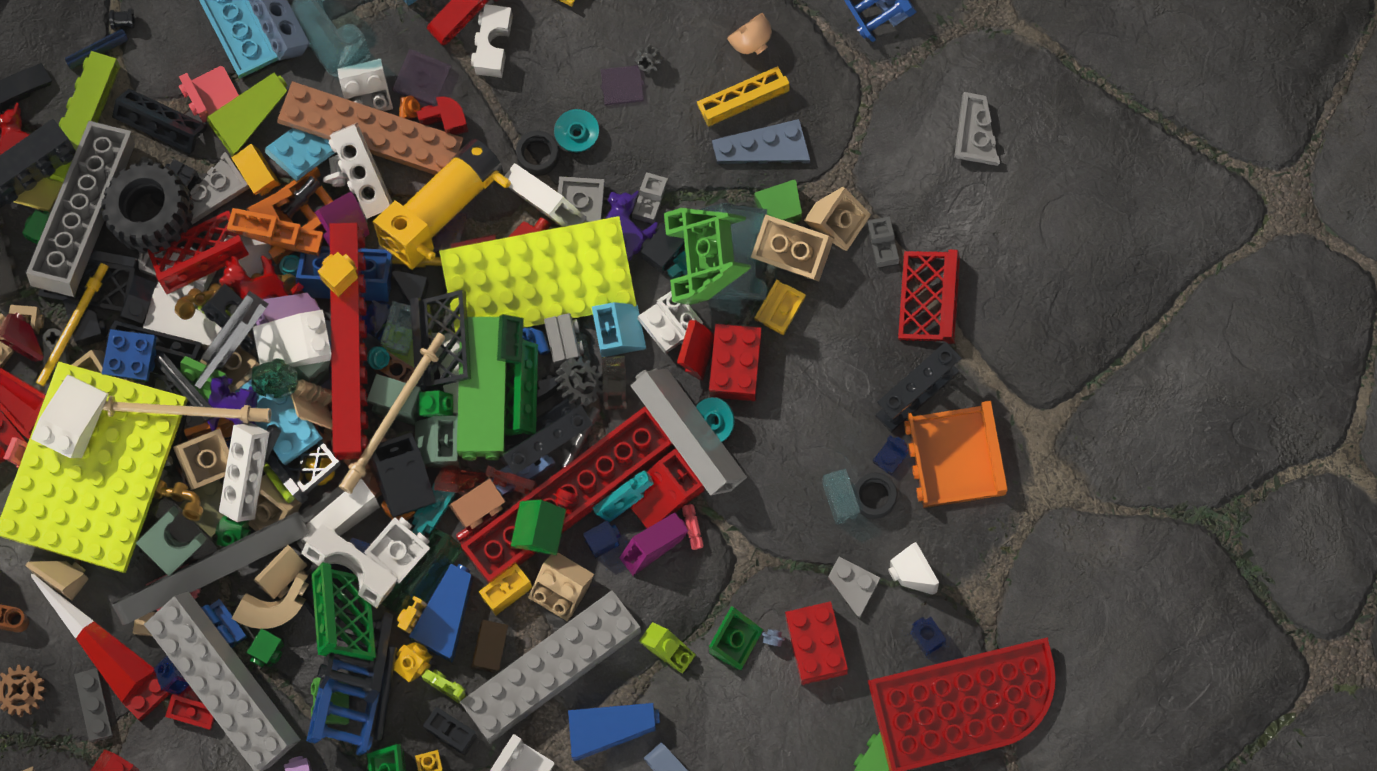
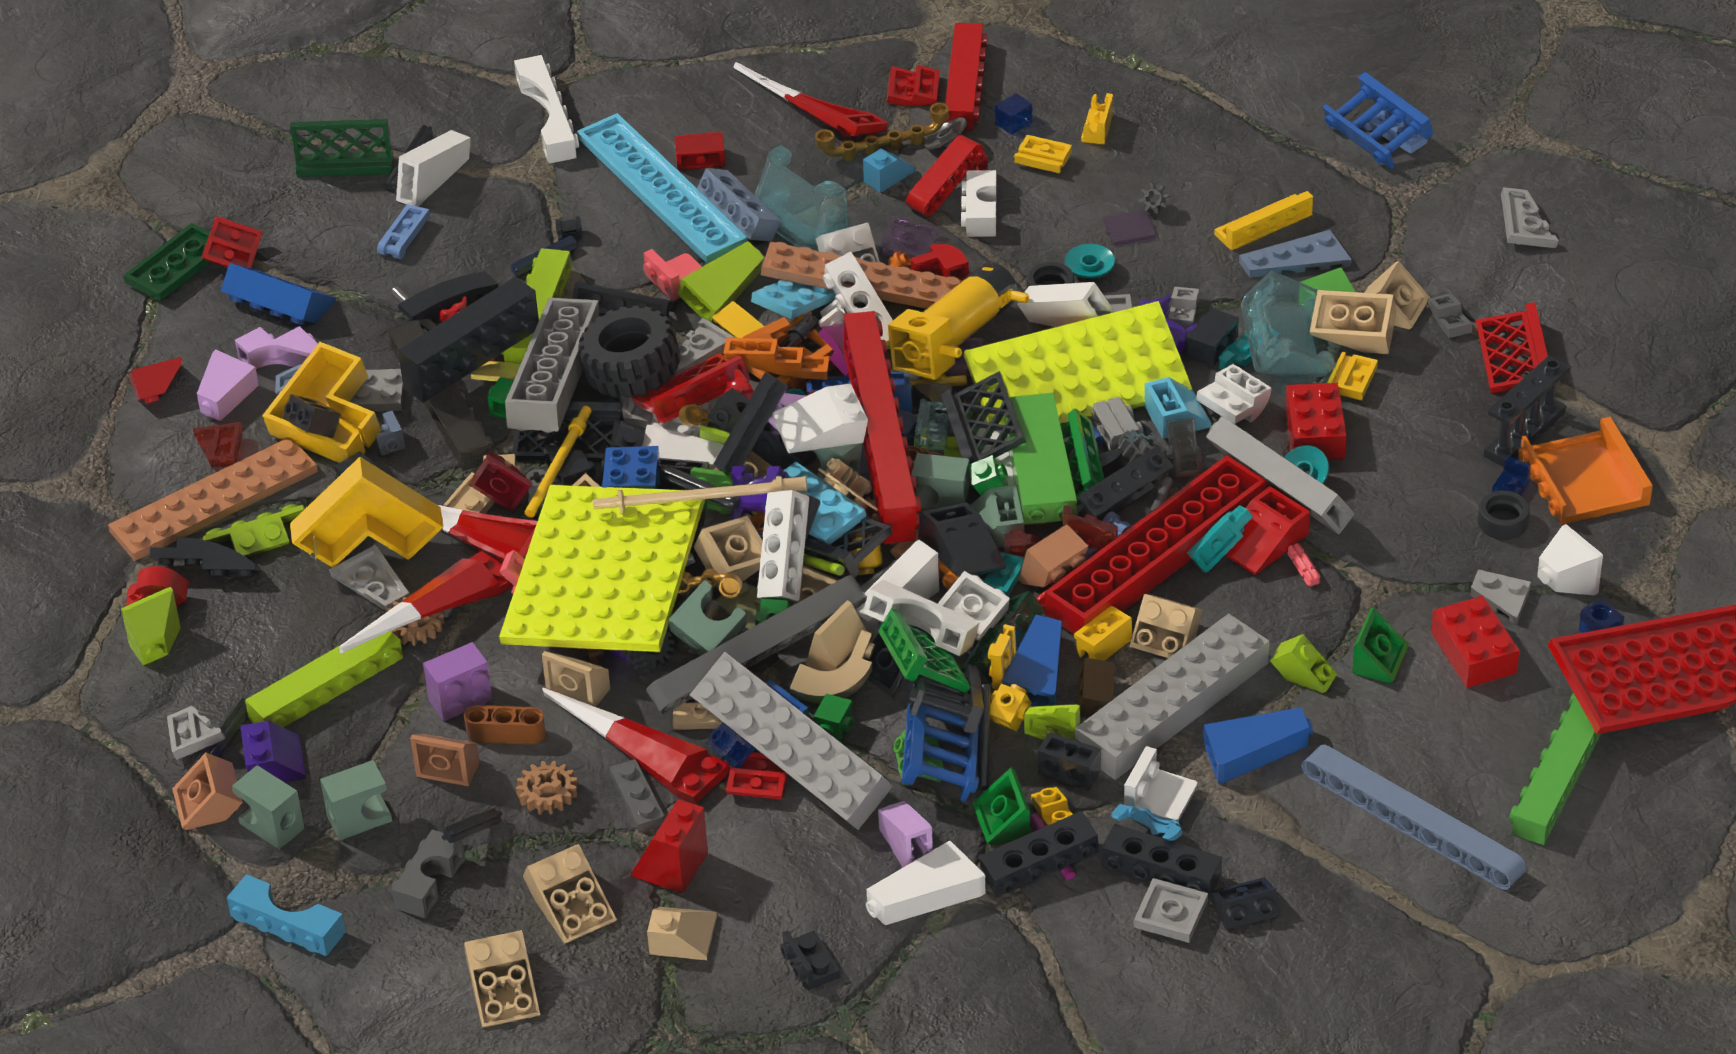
camera: 10 degrees left, 30 degrees down
(70, 417) = (576, 514): white slope -> none
(266, 376) = (807, 439): clear green plate -> none
(338, 272) = (864, 341): yellow brick -> none
(358, 469) = (914, 526): tan bar -> none
(378, 358) = (915, 445): teal plate -> none
(510, 339) = (1062, 405): dark green plate -> none
(538, 526) = (1131, 561): green slope -> none
(564, 497) = (1155, 533): red plate -> none
(602, 538) = (1203, 582): clear blue brick -> none
(653, 543) = (1262, 577): magenta slope -> none
(696, 349) = (1270, 409): red slope -> none
(707, 253) = (1268, 309): bright green wedge -> none
(752, 36) = (1261, 168): light nougat cylinder -> none
(773, 637) = (1423, 644): sand blue plate -> none
(840, 496) = (1465, 516): clear light blue hinge -> none

